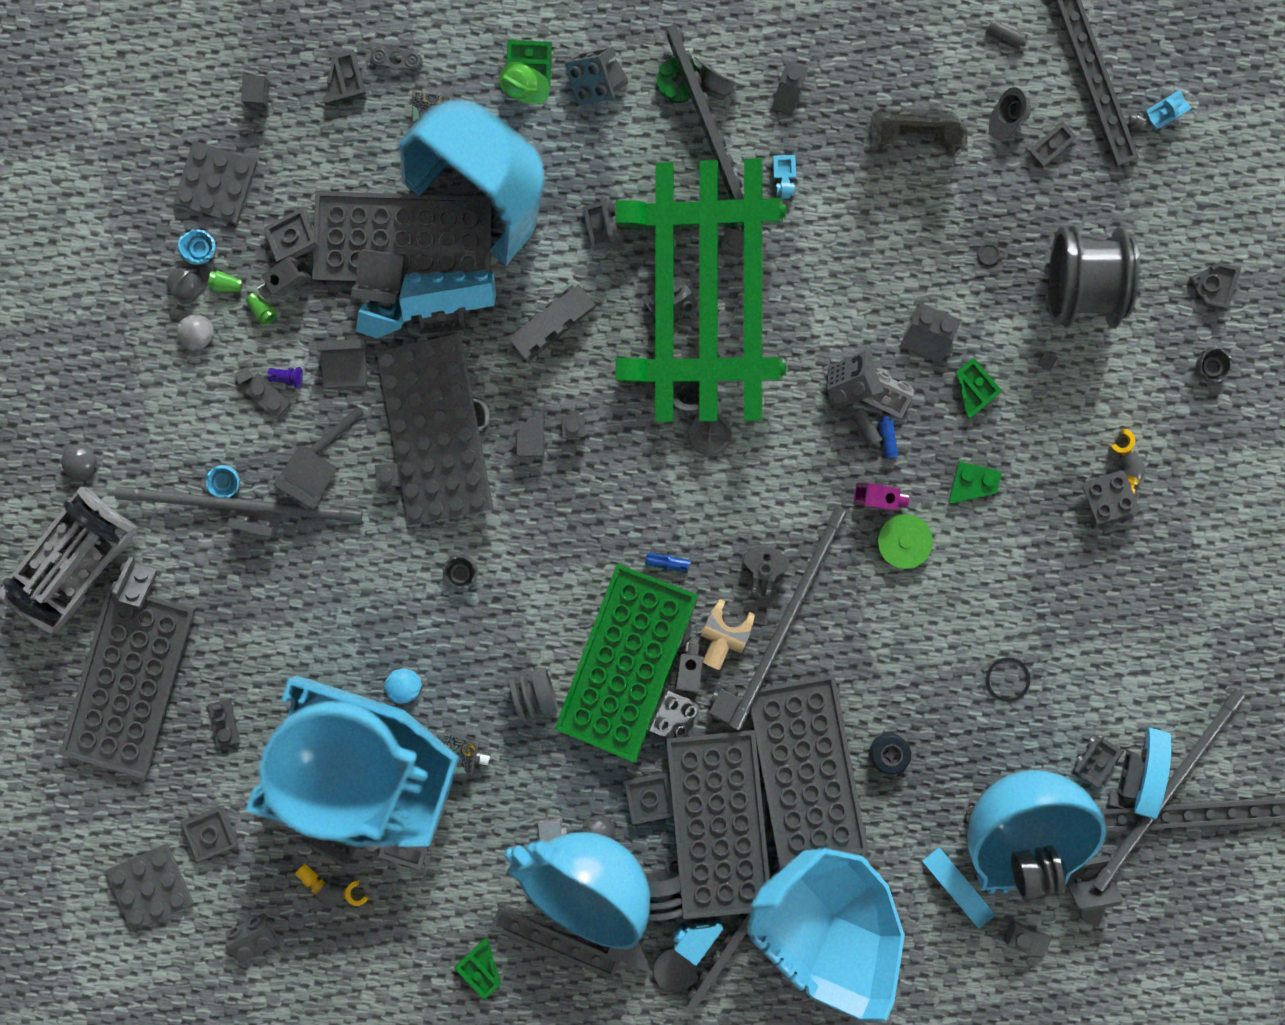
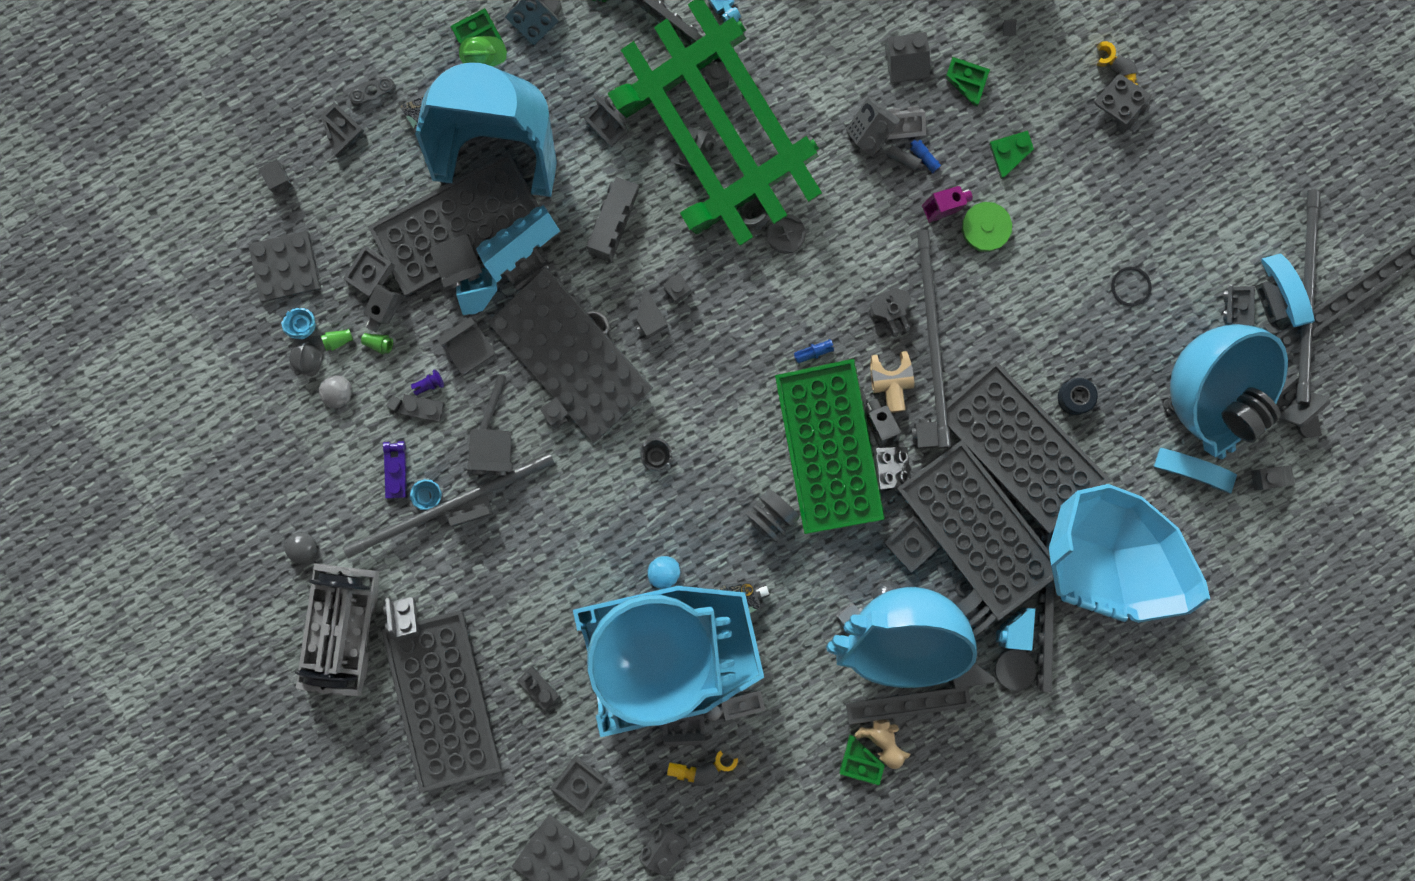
camera: 30 degrees left, 5 degrees down
(208, 440) = (395, 470): none -> dark purple plate
(514, 956) = (883, 736): none -> tan animal

